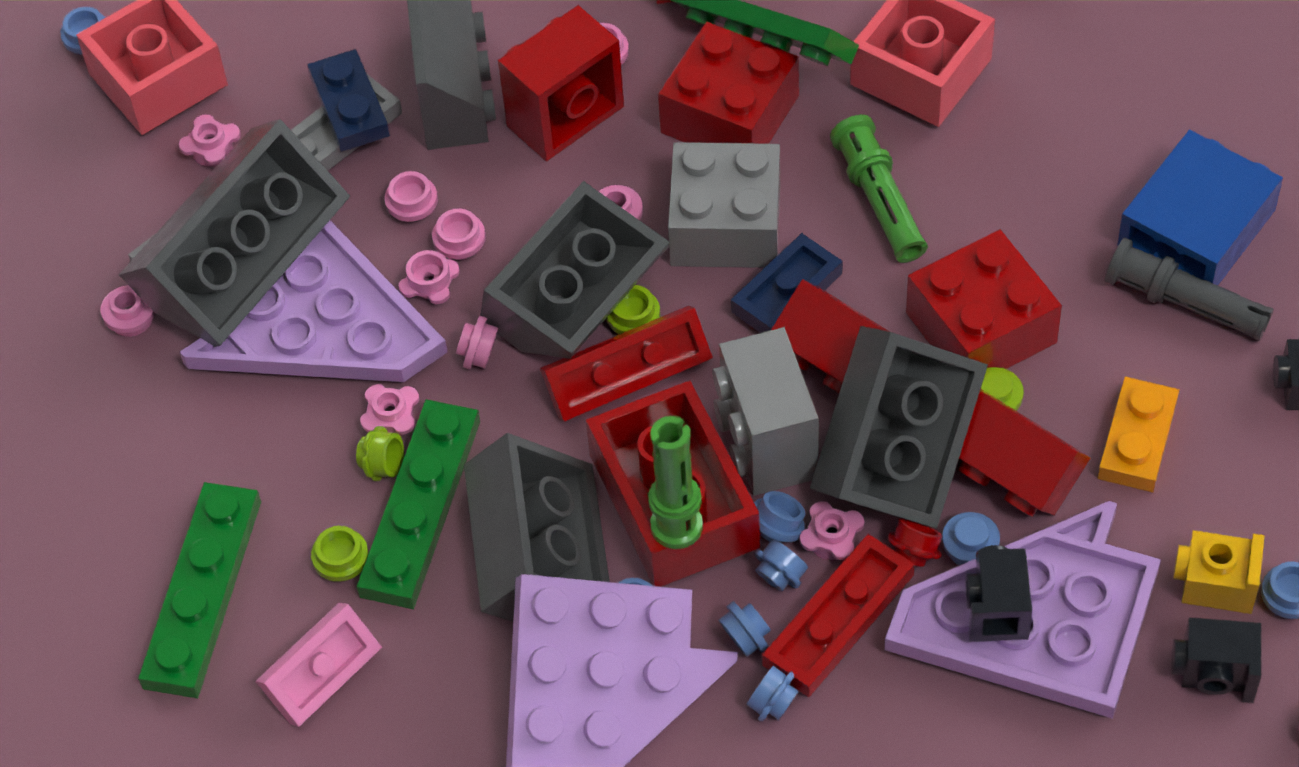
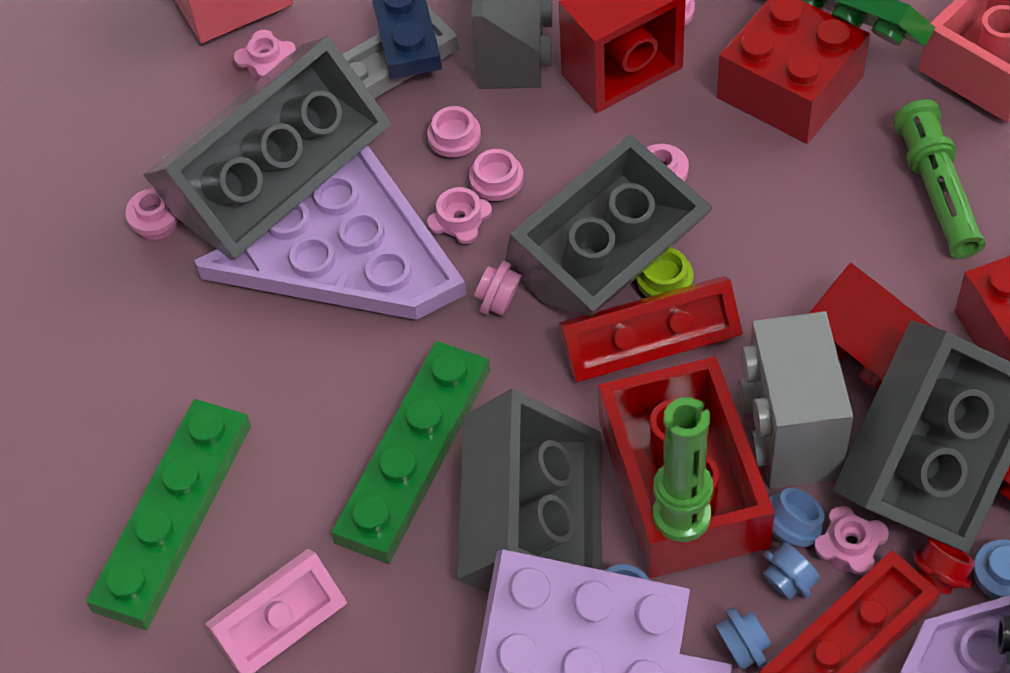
camera: 10 degrees right, 0 degrees up
(339, 553) = (319, 493): lime plate -> none
(380, 453) = (379, 392): lime plate -> none
(395, 421) = (397, 361): bright pink plate -> none
(724, 204) = (774, 176): light grey brick -> none
(771, 289) = (812, 272): dark blue plate -> none

